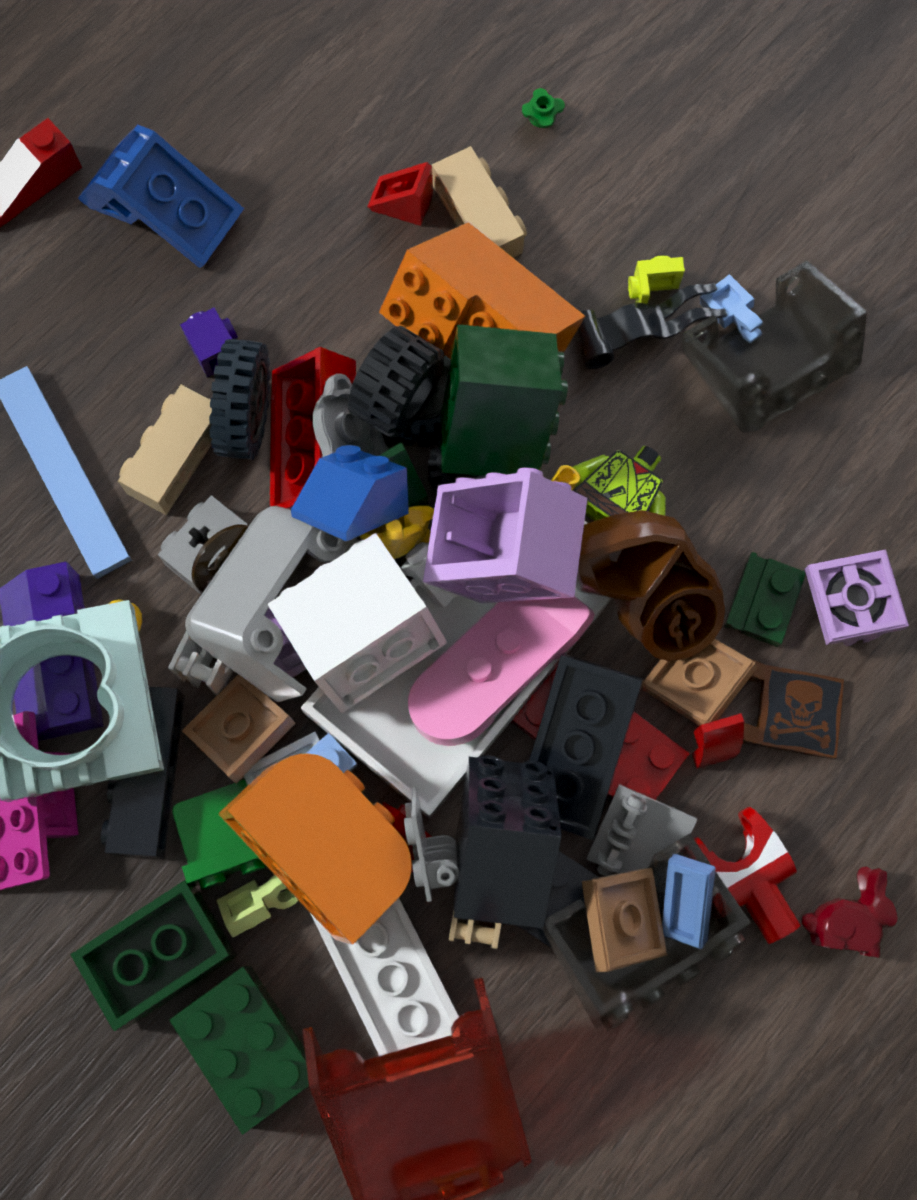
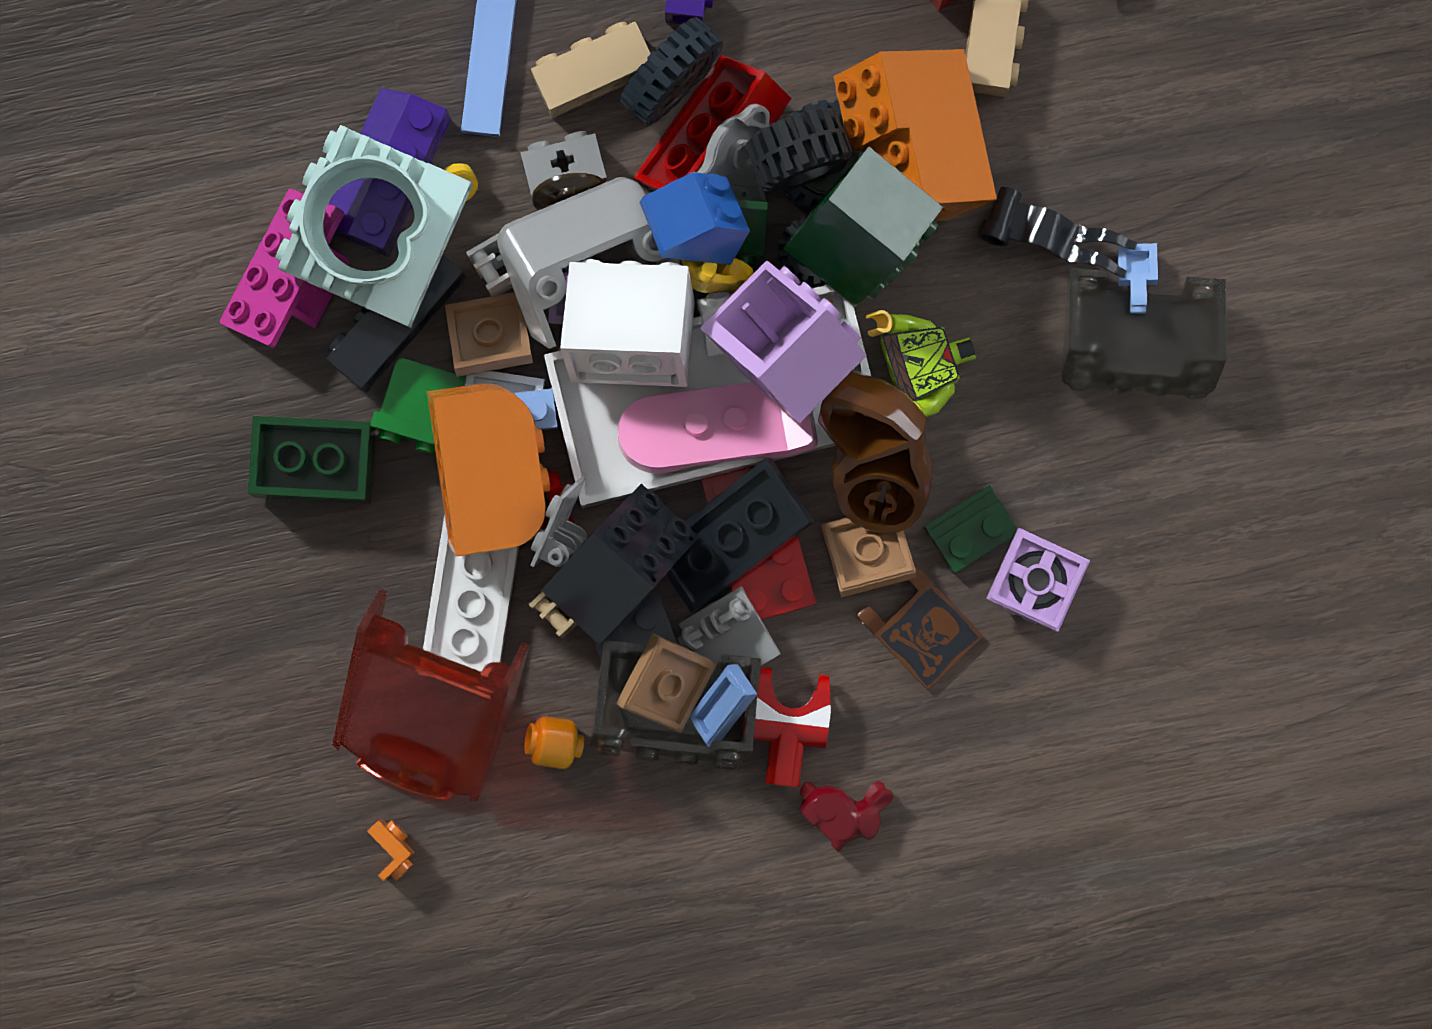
camera: 40 degrees right, 10 degrees up
(244, 1048) = (330, 572): dark green brick -> none
(251, 904) = (406, 473): yellowish green plate -> none
(559, 1051) = (553, 742): none -> light orange head
(655, 275) = (1099, 199): neon yellow bracket -> none
(718, 741) = (840, 609): red slope -> none

